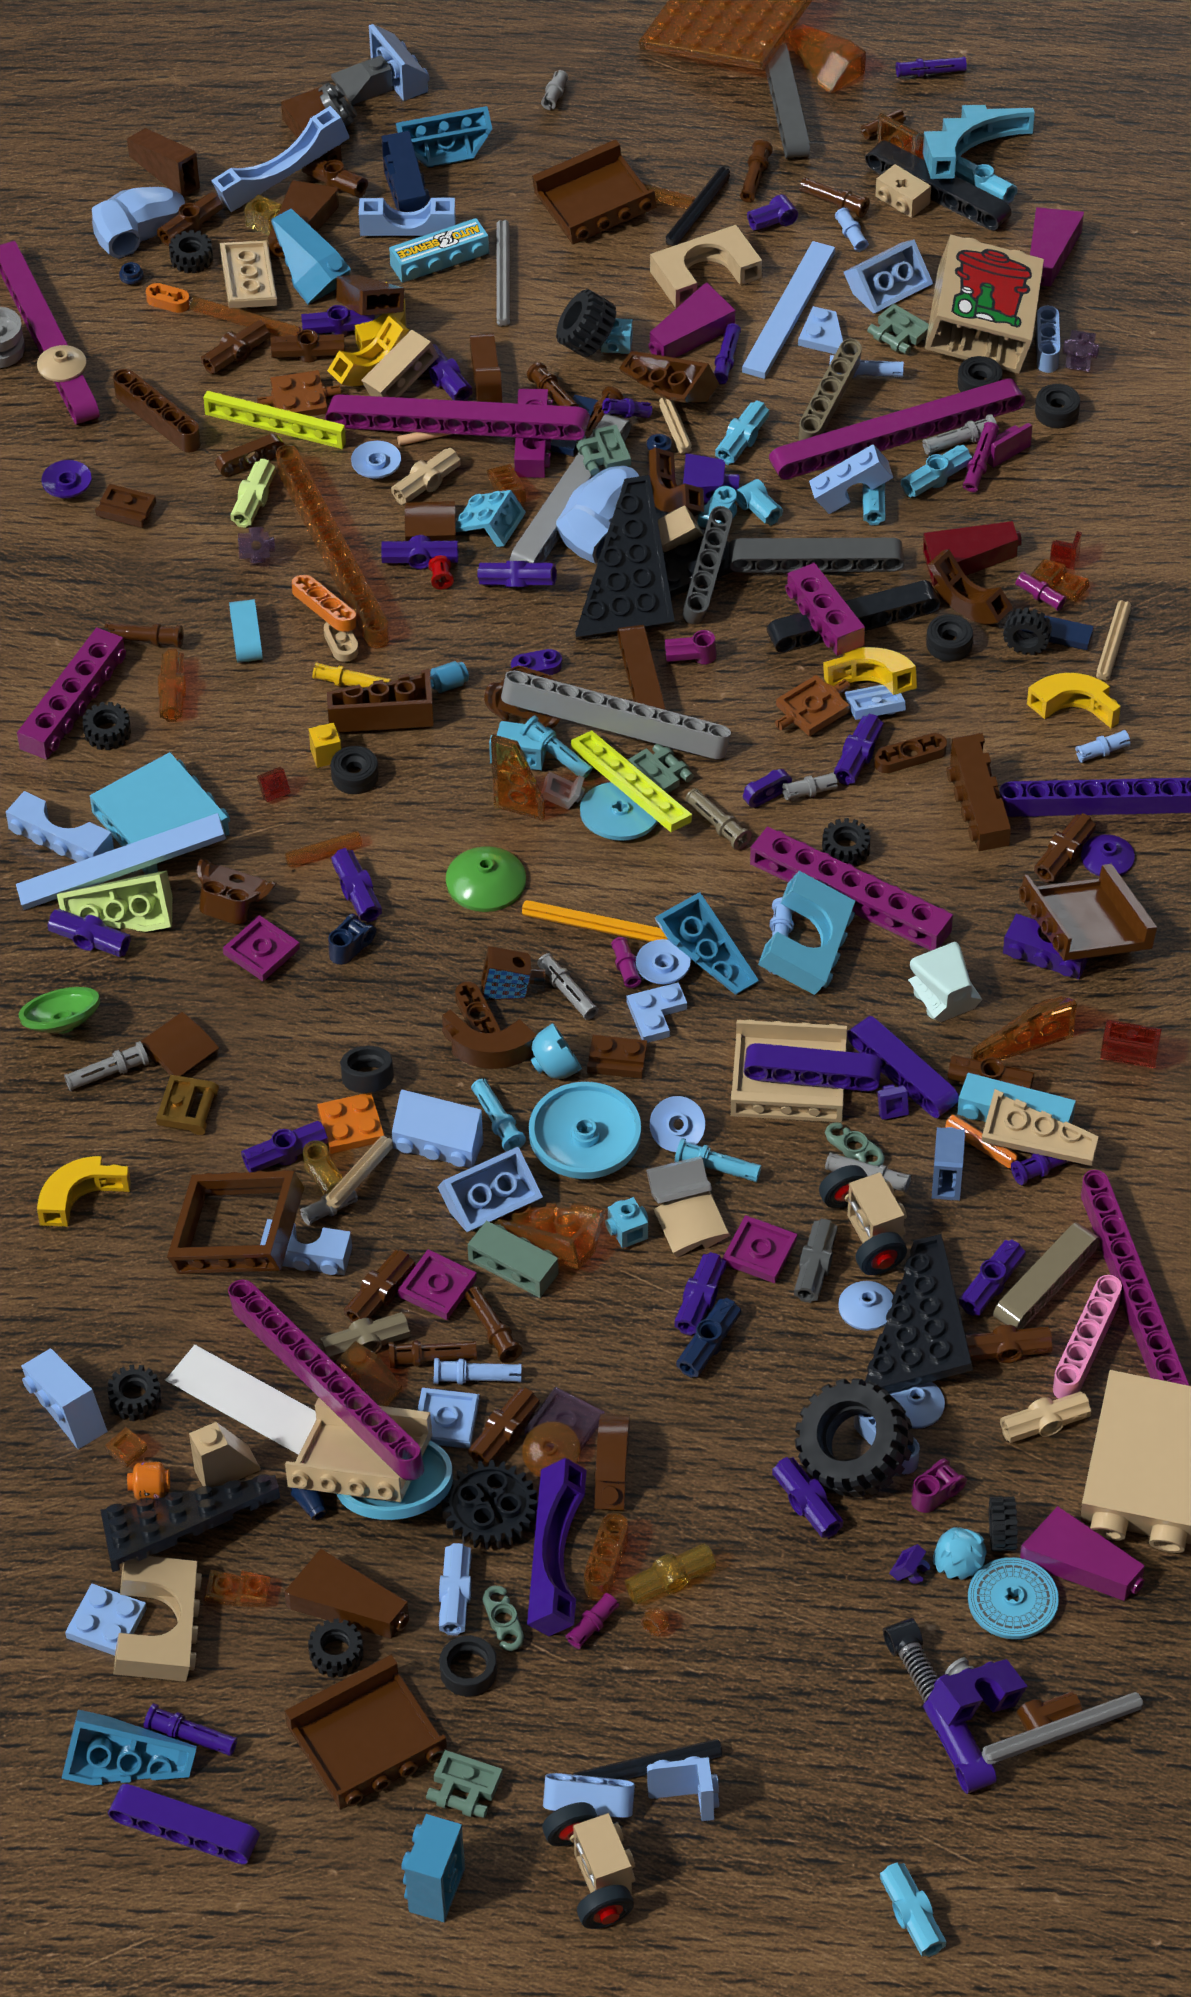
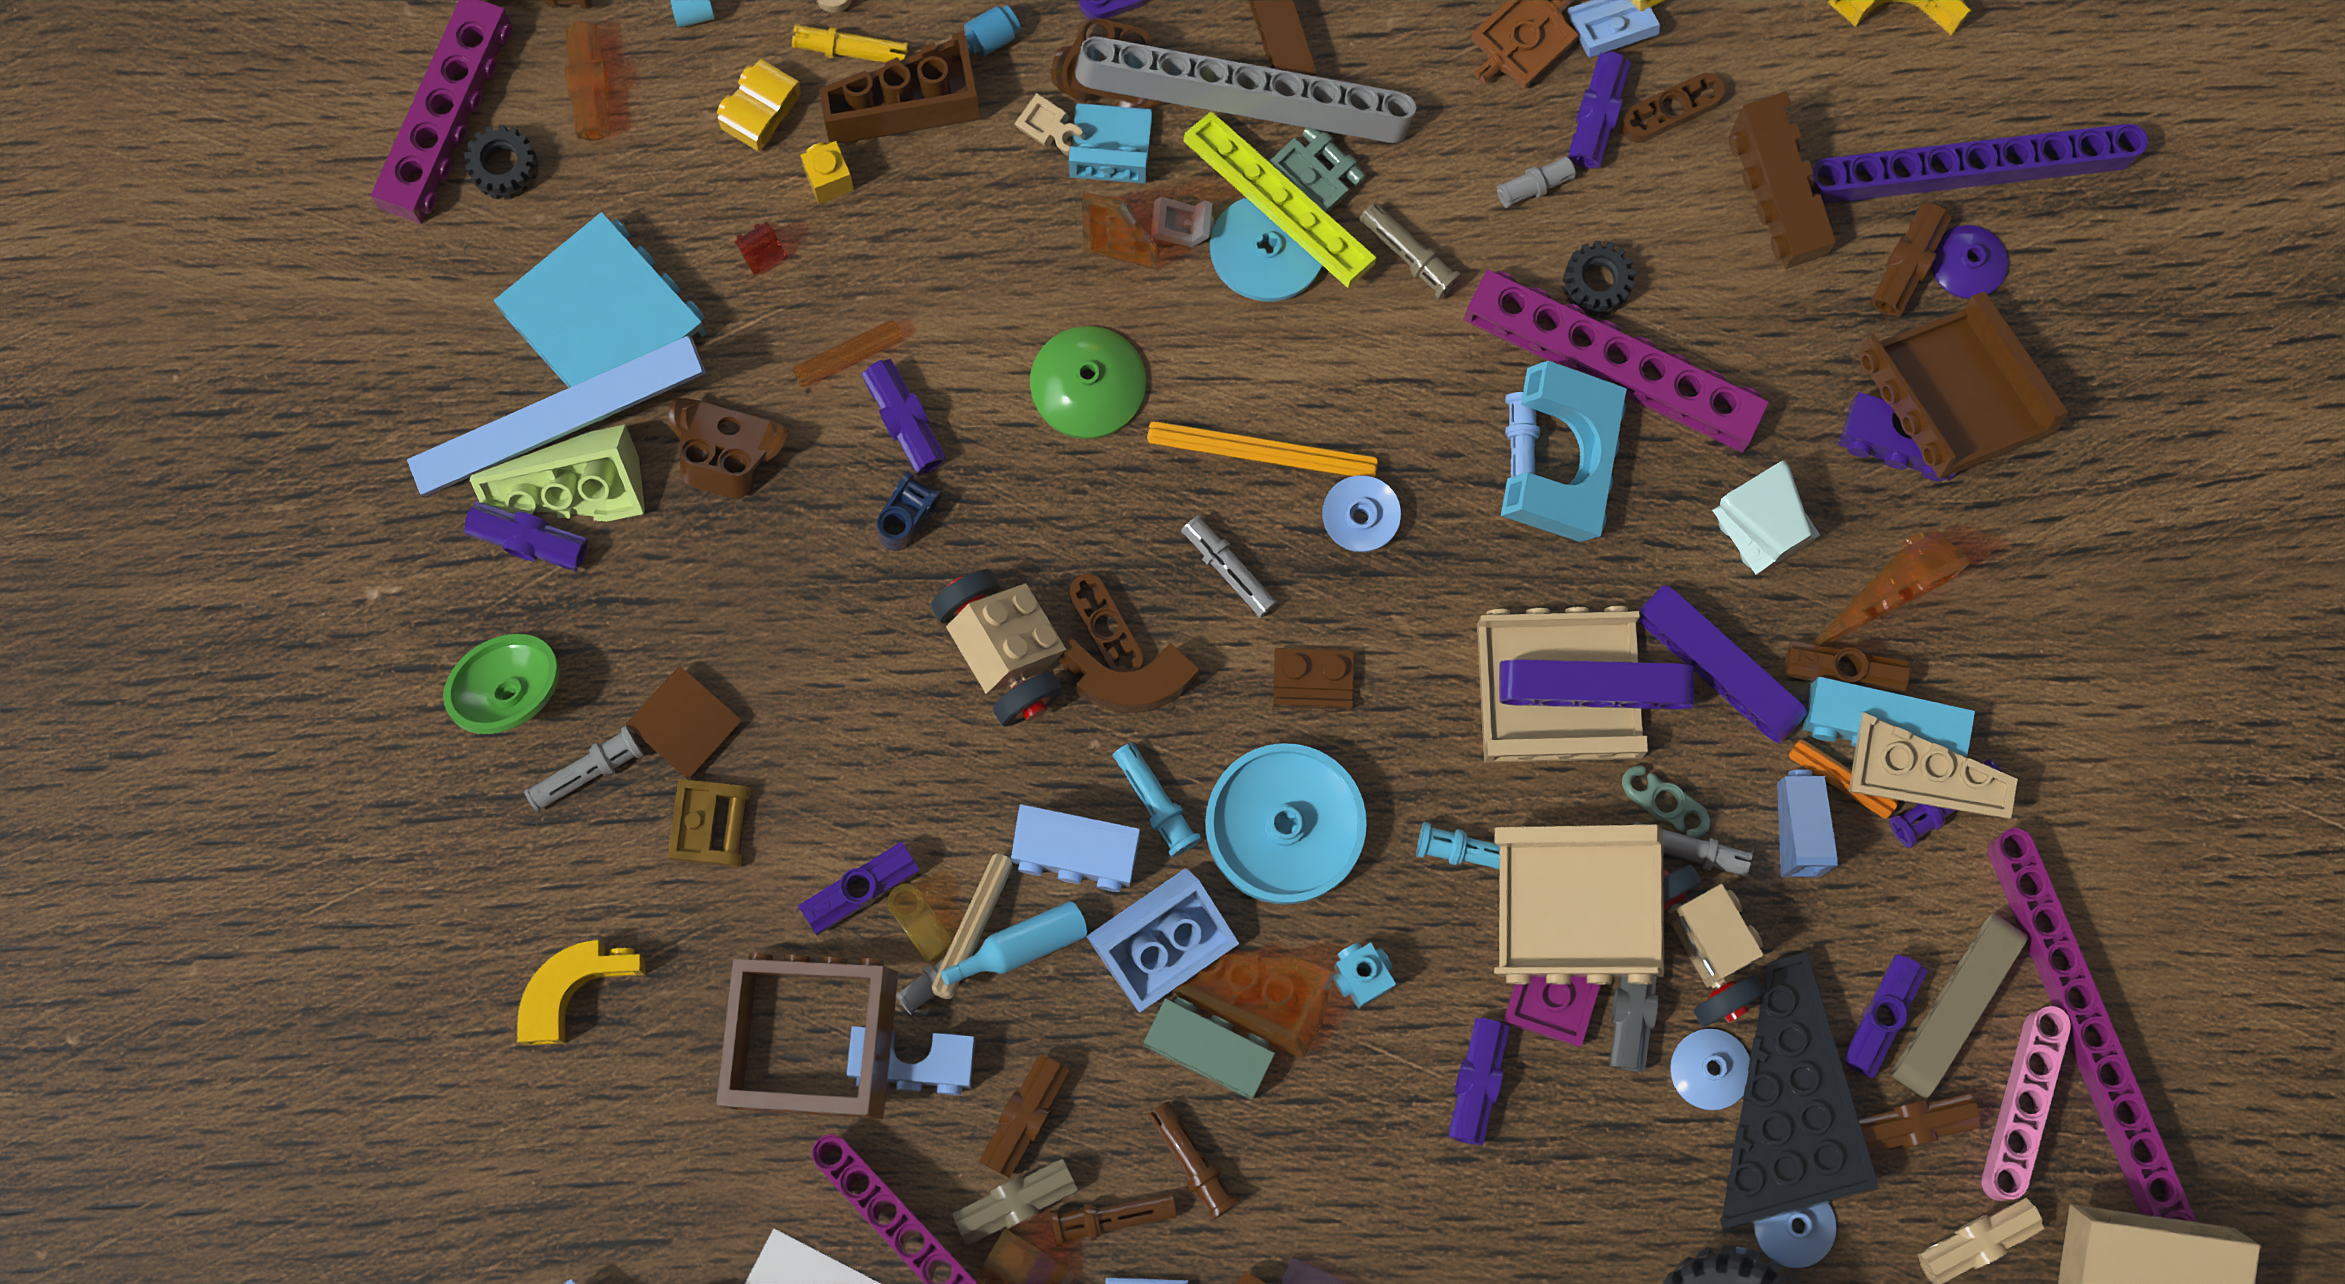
camera: 10 degrees left, 25 degrees up
(30, 818) = (499, 379): light blue arch -> none
(261, 948) = (780, 540): magenta plate -> none
(285, 705) = (758, 104): none -> yellow brick
(350, 1122) = (947, 829): orange plate -> none
(354, 782) = (868, 189): black tyre -> none
(367, 1057) = (953, 718): black tyre -> none
(393, 1181) = (1023, 943): none -> medium azure piece
(407, 1009) = (1003, 642): none -> tan brick
(437, 1284) = (1106, 1101): magenta plate -> none
(463, 1371) = (1161, 1246): light blue pin -> none
(478, 729) = (1047, 123): none -> tan plate
(508, 974) = (1145, 561): reddish brown torso -> none
(553, 1054) = (1226, 694): medium azure cylinder -> none
(567, 757) = (1150, 140): medium azure pin -> none
(626, 962) = (1307, 516): magenta pin -> none
(651, 1006) = (1348, 591): light blue plate -> none
(663, 1121) = (1409, 811): light blue dish -> none
(678, 1180) = (1428, 897): light grey panel -> none
(691, 1222) = (1451, 958): tan slope -> none
(702, 1349) = (1511, 1132): dark blue piece -> none
(703, 939) = (1412, 471): dark azure wedge -> none
(766, 788) = (1463, 200): dark purple plate -> none
(782, 1178) = (1581, 903): none -> tan panel
(892, 1101) = (1713, 726): dark purple tile -> none
(1102, 746) = (1946, 73): light blue pin -> none
(1130, 1043) = (2041, 601): clear red brick -> none

